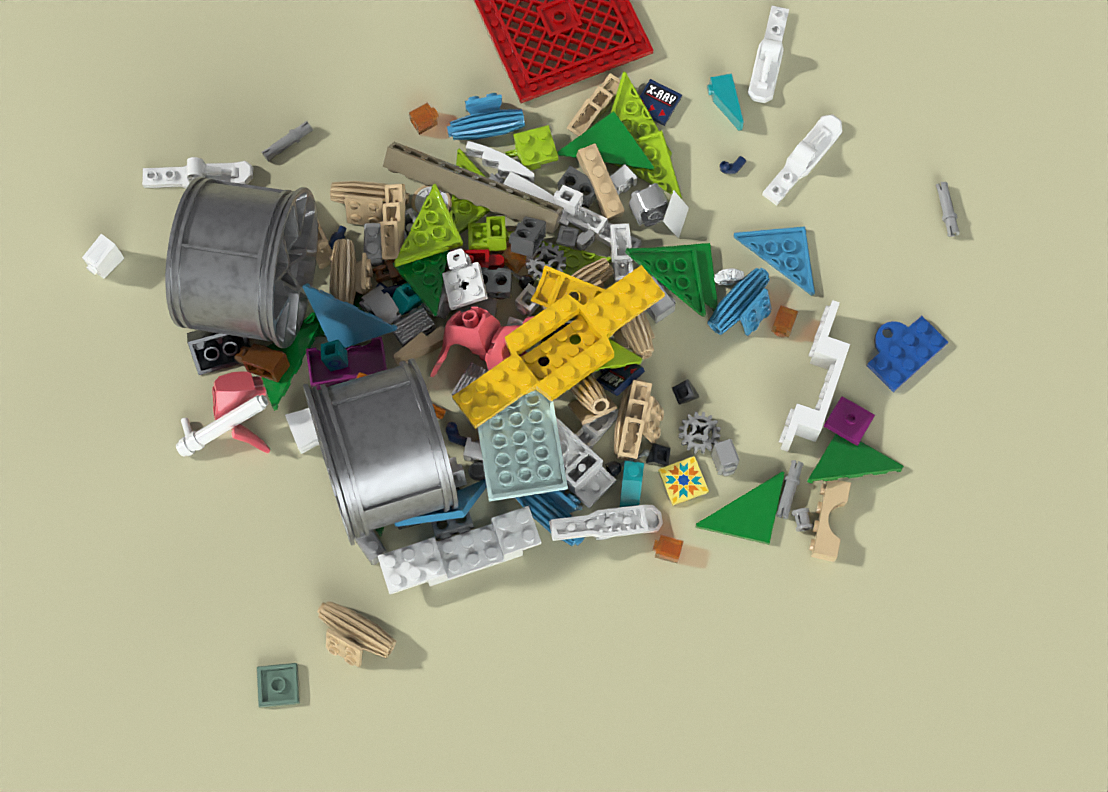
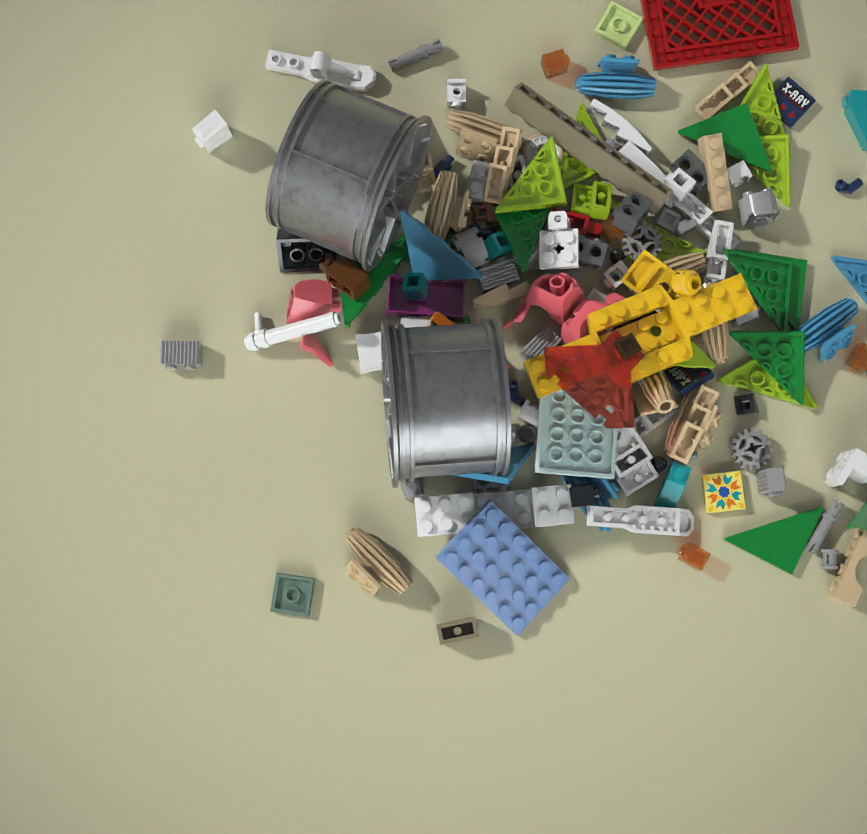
camera: 10 degrees right, 10 degrees up
(115, 476) = (181, 354): none -> light grey brick
(331, 161) = (456, 86): none -> white brick
(450, 677) = (457, 630): none -> dark tan brick
(477, 69) = (618, 25): none -> yellowish green tile
(481, 604) = (502, 567): none -> medium blue plate
(527, 392) = (596, 378): none -> clear red plate
(534, 148) = (657, 120): lime plate -> none
(544, 512) = (584, 494): none -> black brick
(547, 355) = (627, 346): none -> dark brown tile
(590, 285) = (685, 282): none -> yellow head
(658, 455) = (705, 461): black slope -> none
(676, 214) = (781, 223): white sticker -> none
(703, 336) = (779, 355): none -> green tile
(703, 359) = (755, 379): none -> lime tile
(728, 276) = (818, 300): white gear -> none

